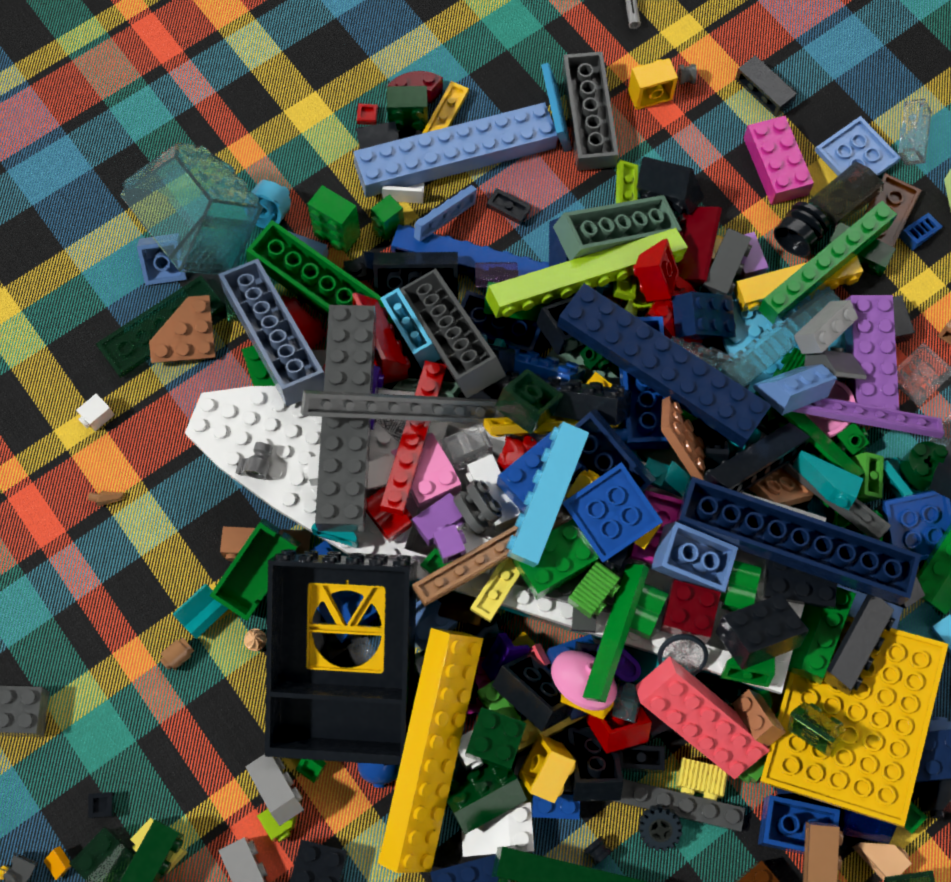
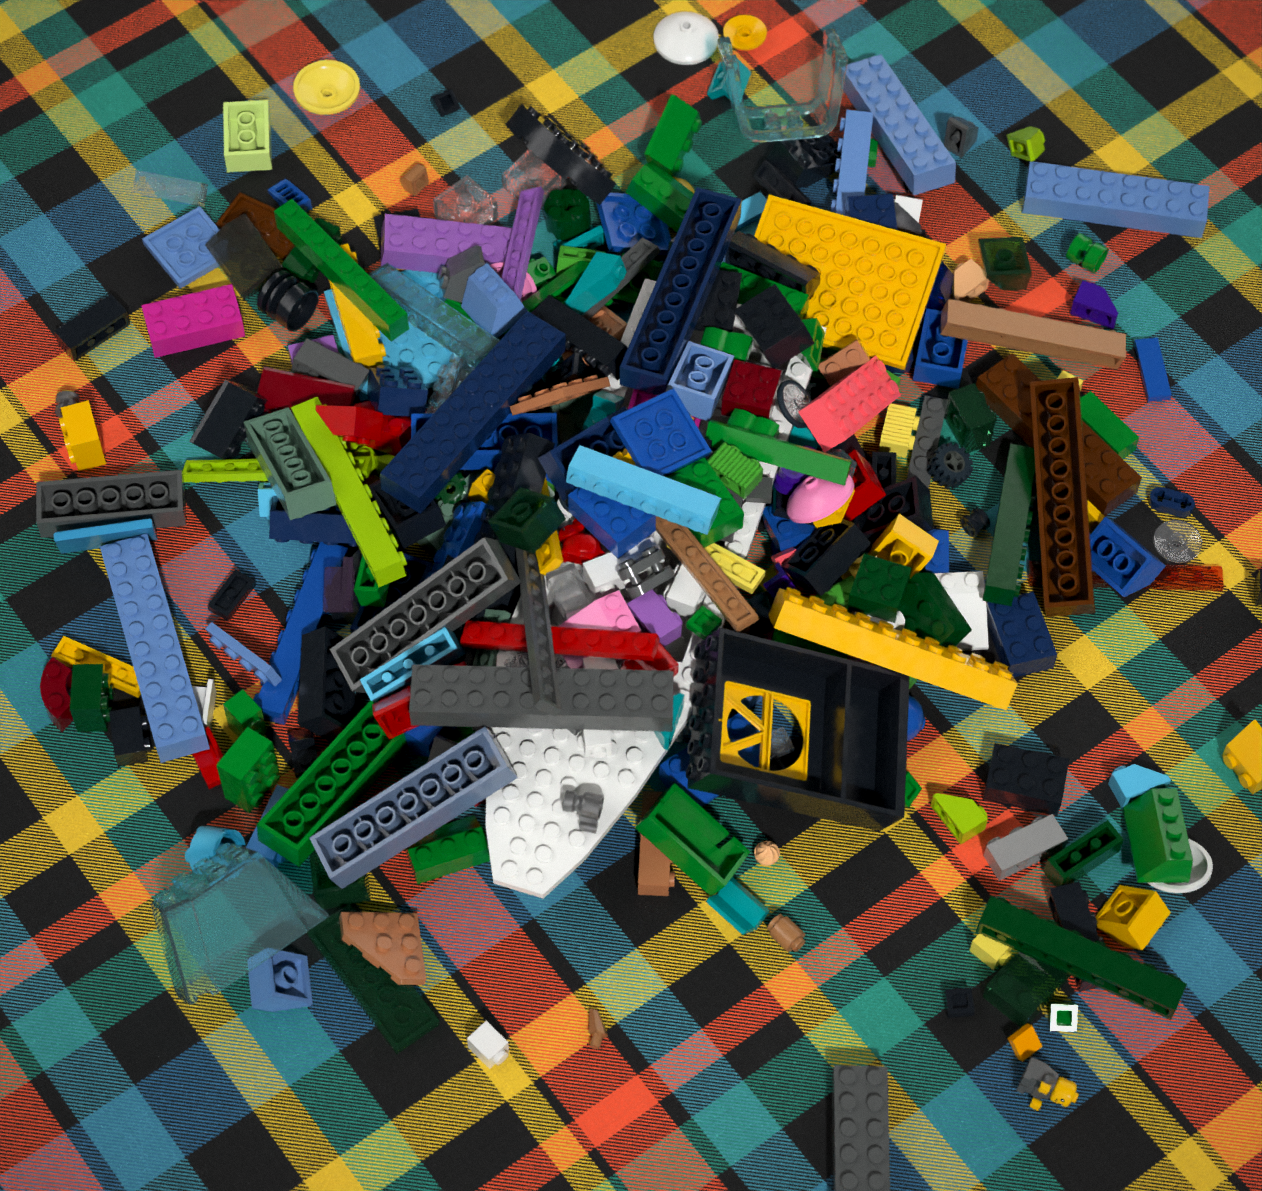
camera: 90 degrees left, 10 degrees down
(275, 788) = (934, 813): light grey brick -> none
(363, 200) = (207, 761): none -> red panel
(367, 114) = (85, 753): red tile -> none
(449, 542) = (688, 597): medium lavender brick -> none
(713, 850) = (970, 418): none -> clear green brick
(815, 728) = (858, 305): slope -> none
(826, 327) = (423, 271): light grey brick -> none

